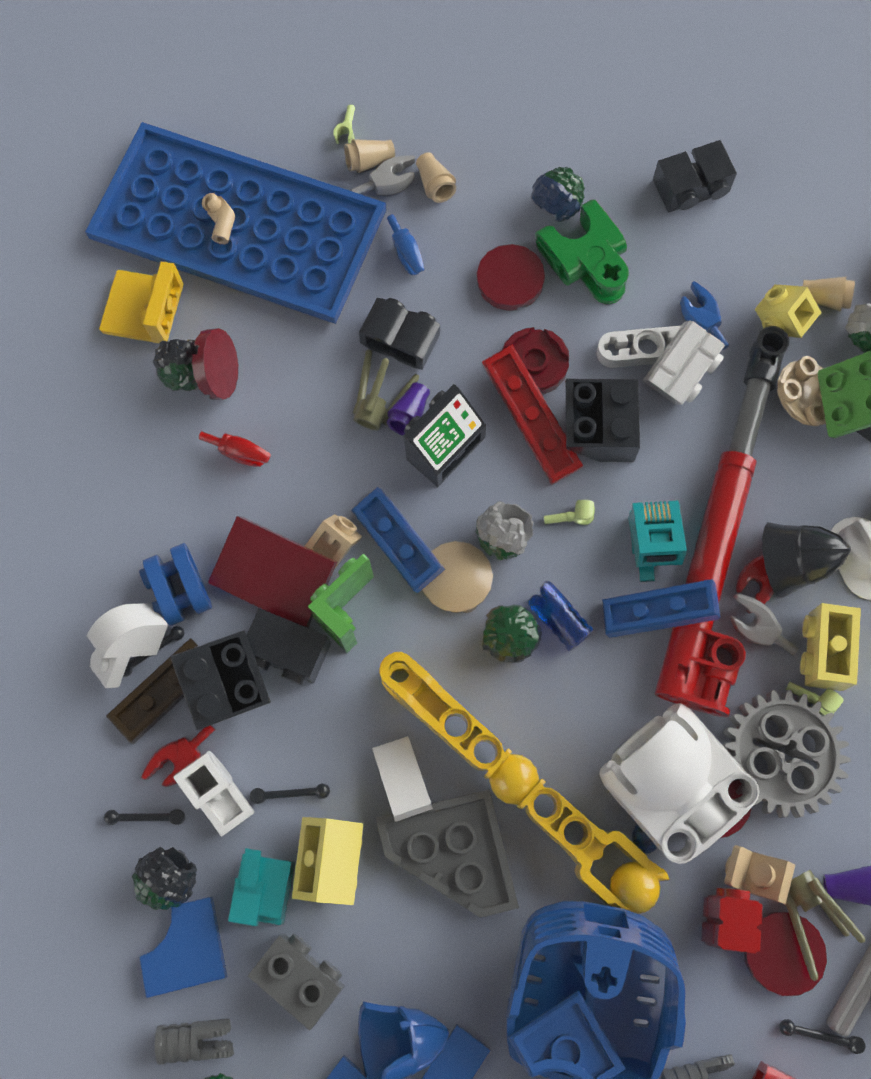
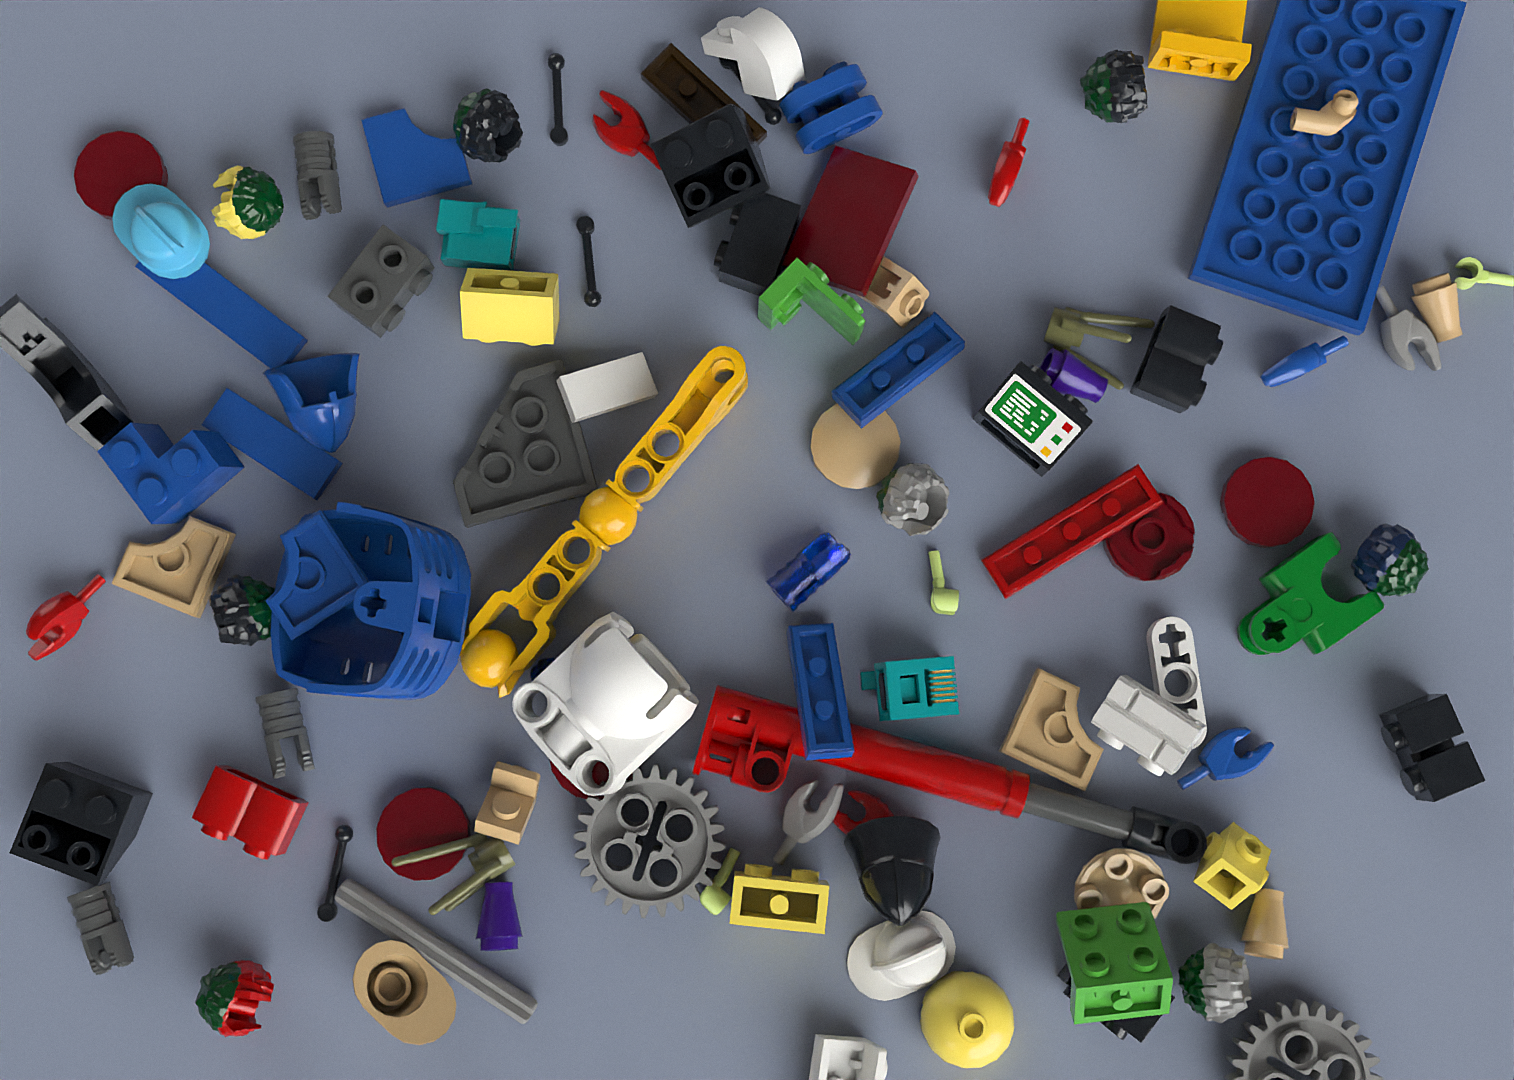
camera: 80 degrees right, 10 degrees up
(213, 790) = (590, 168): white brick -> none
(215, 364) = (1116, 128): dark red tile -> none
(436, 179) = (1404, 399): tan cone -> none
(511, 633) = (784, 510): dark green piece -> none
(603, 418) = (1067, 618): black slope -> none
(686, 439) = (1049, 732): none -> tan tile
(732, 921) = (451, 766): red brick -> none

